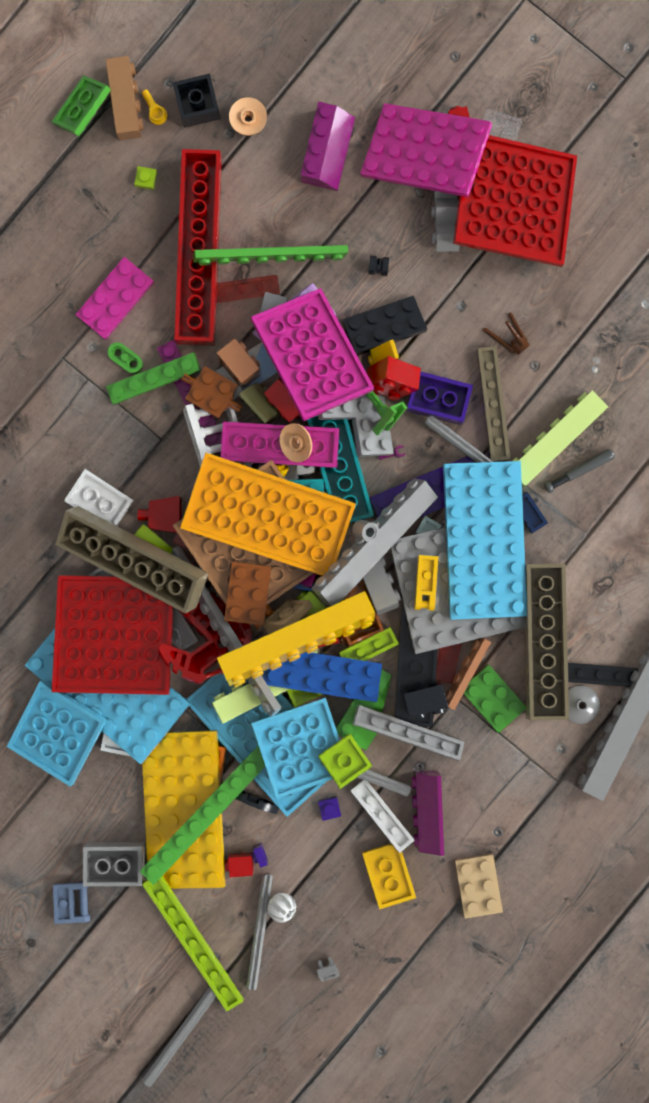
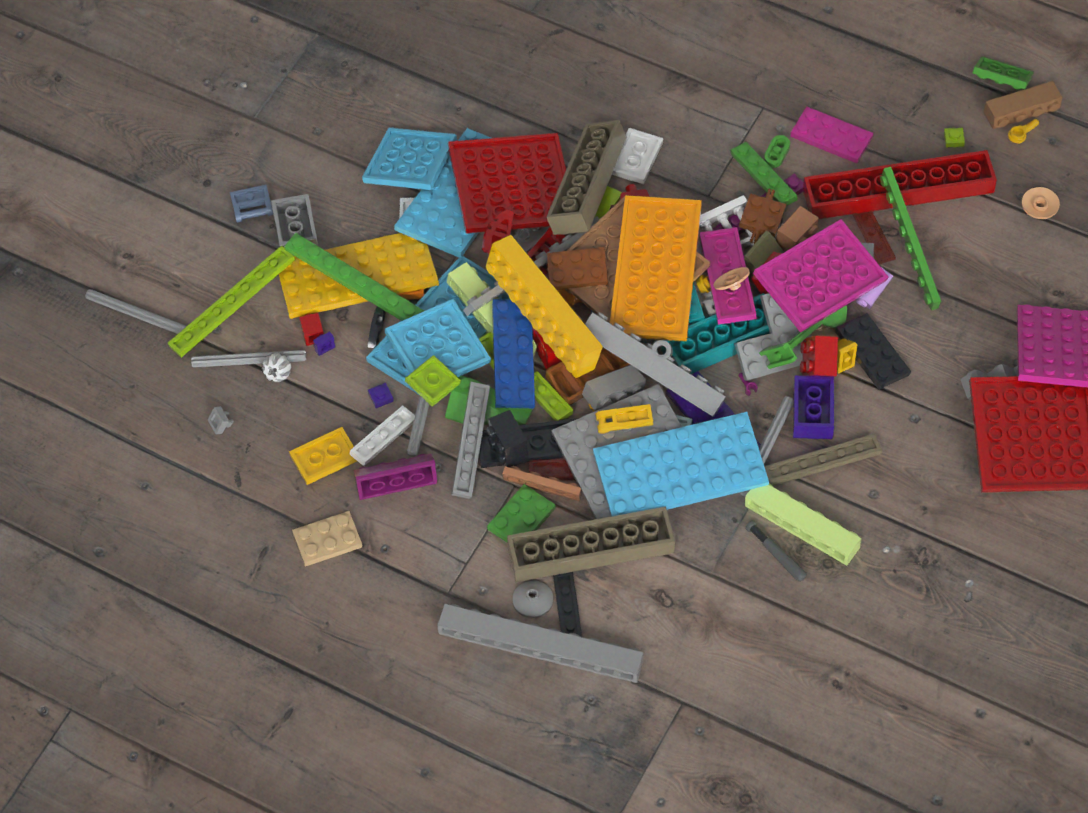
camera: 85 degrees right, 30 degrees down
(196, 100) = (1039, 158): black brick -> none
(327, 147) = (1034, 271): magenta slope -> none
(378, 265) = (930, 335): black wheel -> none
(519, 343) = (890, 470): reddish brown plant -> none
(531, 514) = (720, 514): dark blue tile -> none

